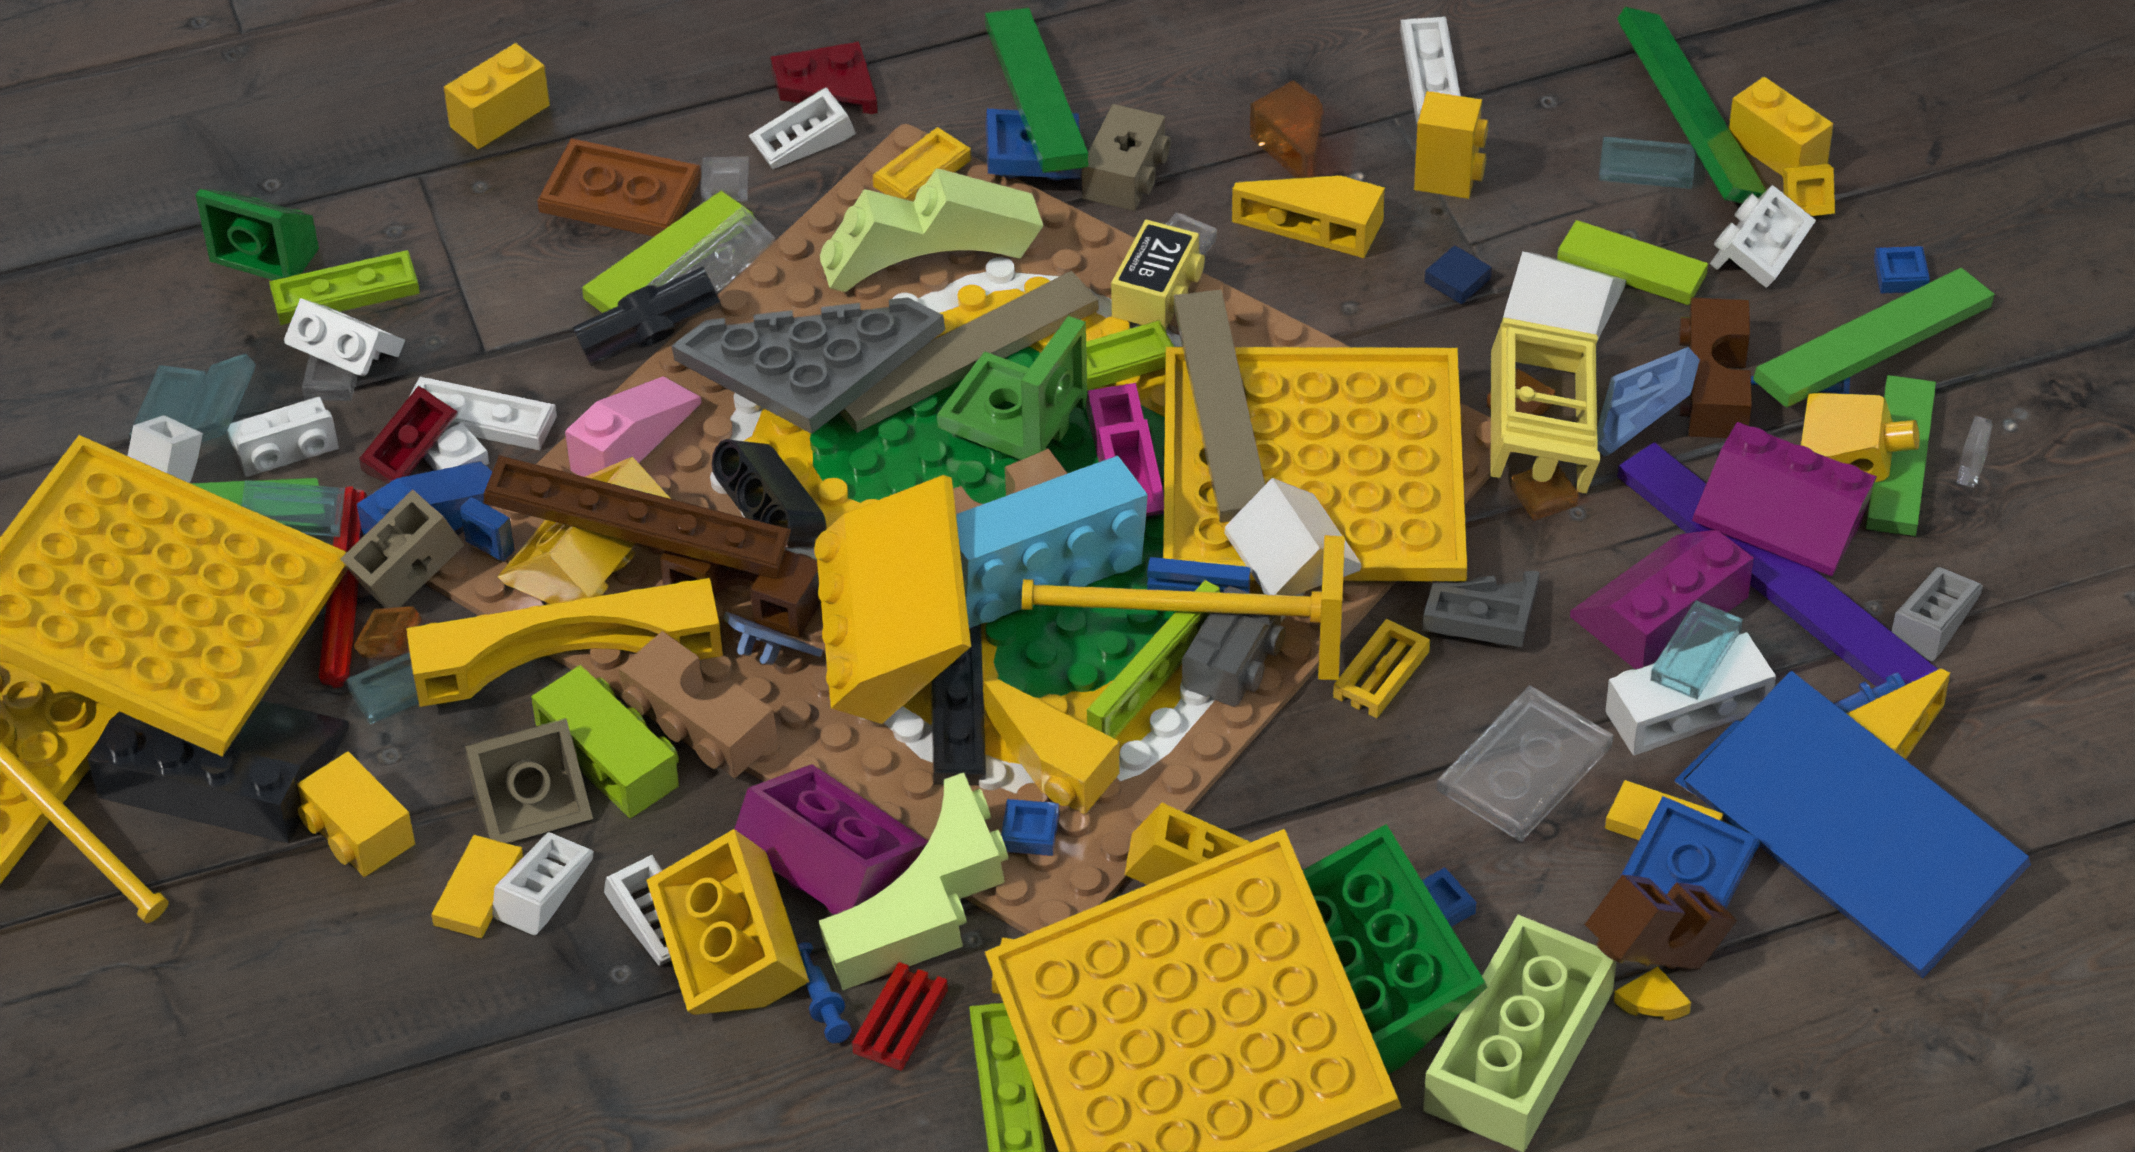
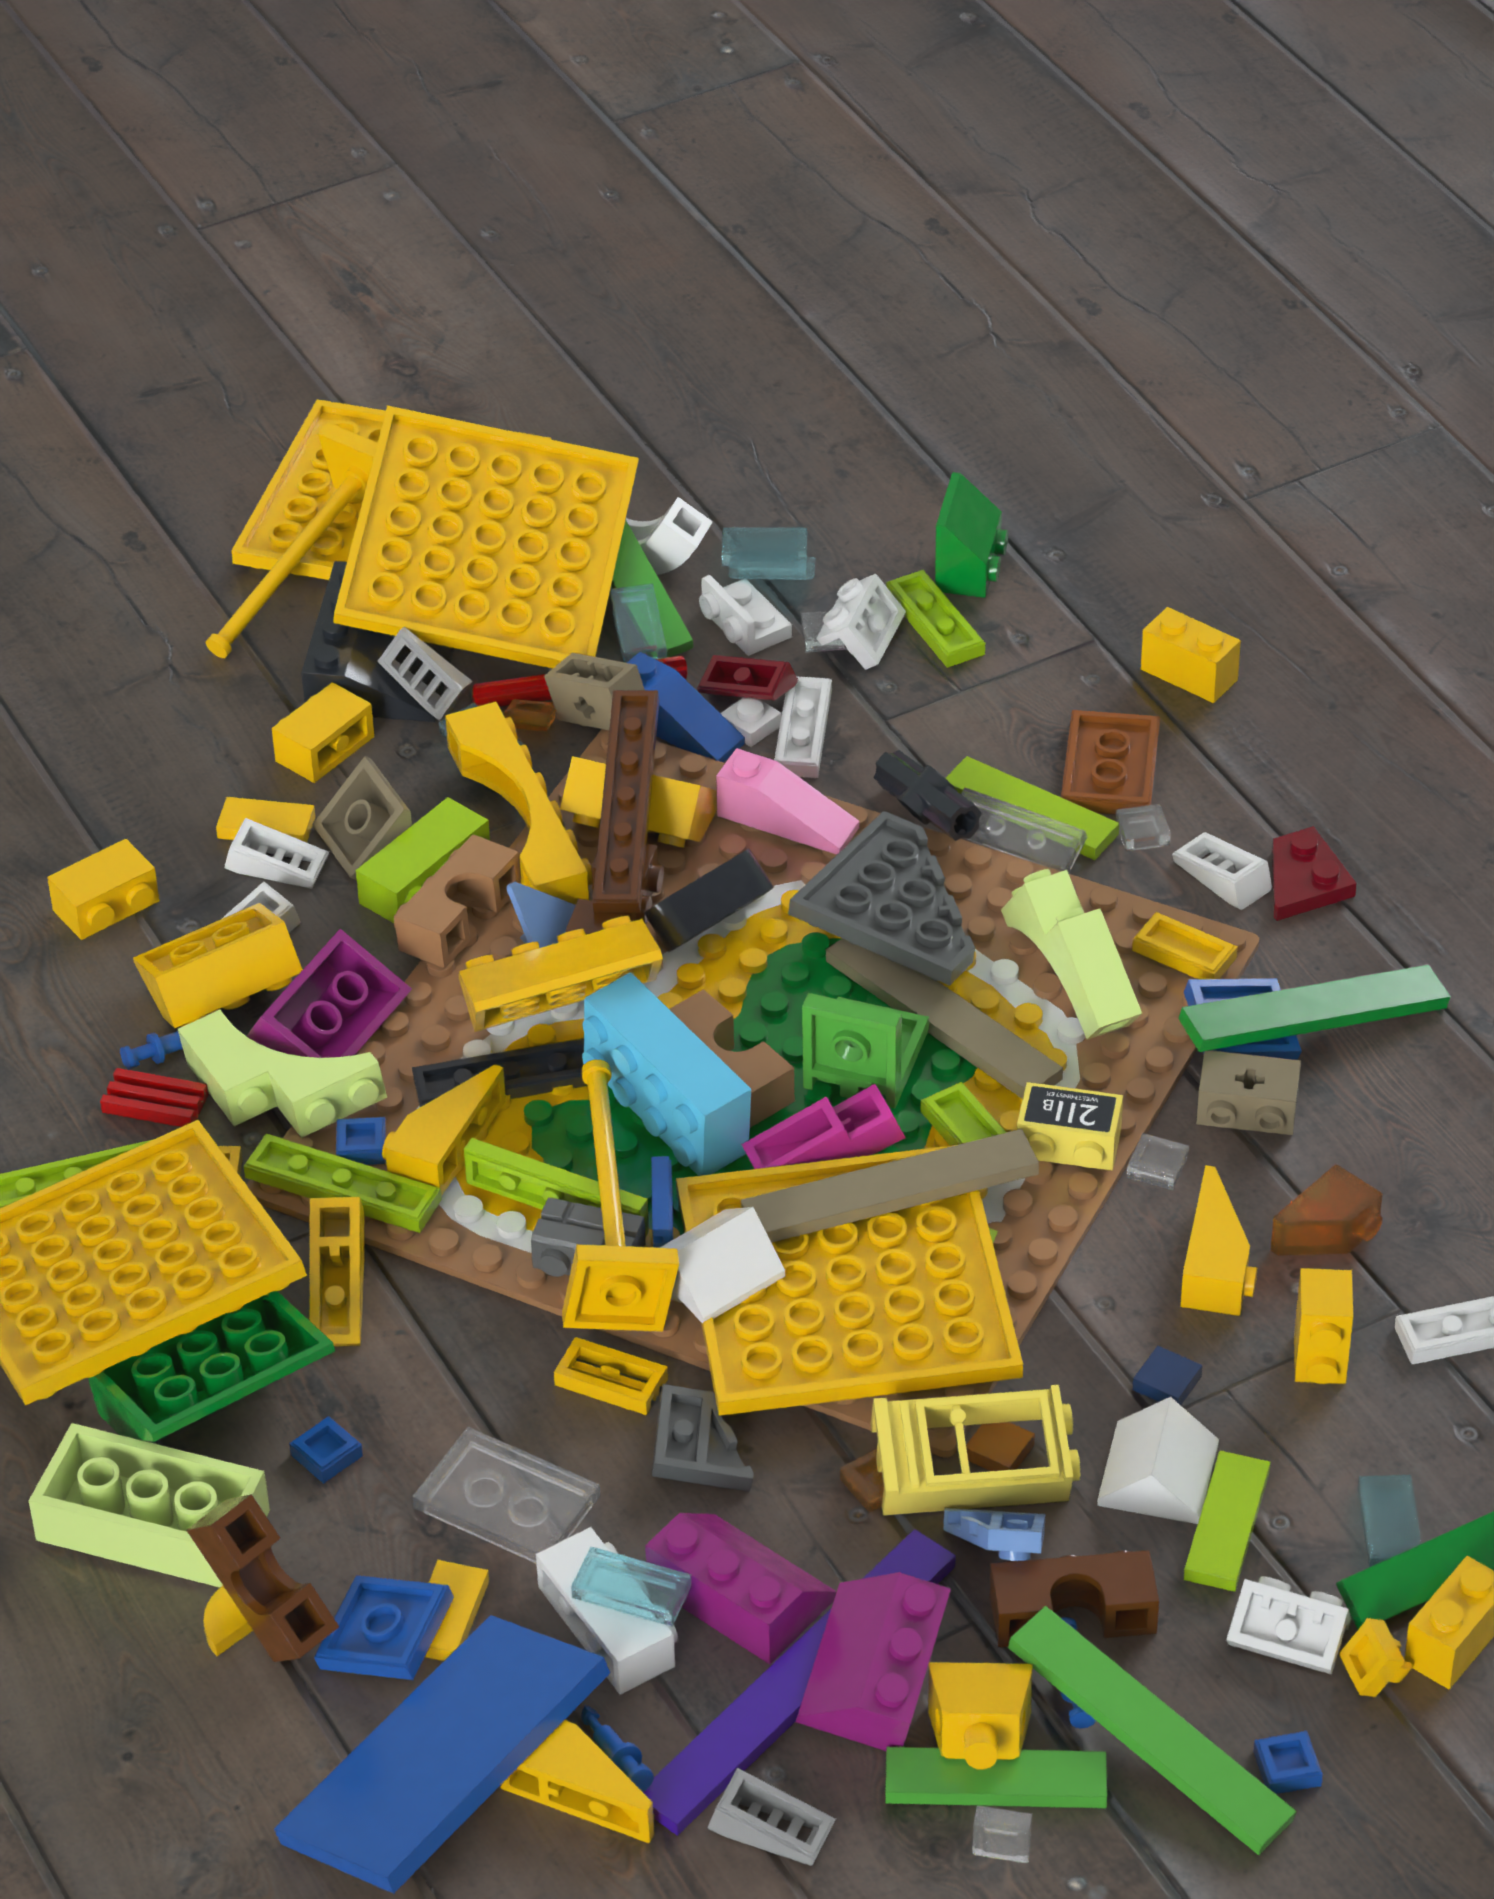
camera: 80 degrees right, 5 degrees down
(344, 692) = (444, 672): none -> light grey slope
(559, 1036) = (103, 889): none -> yellow brick
(1086, 847) = (326, 1175): none -> lime tile

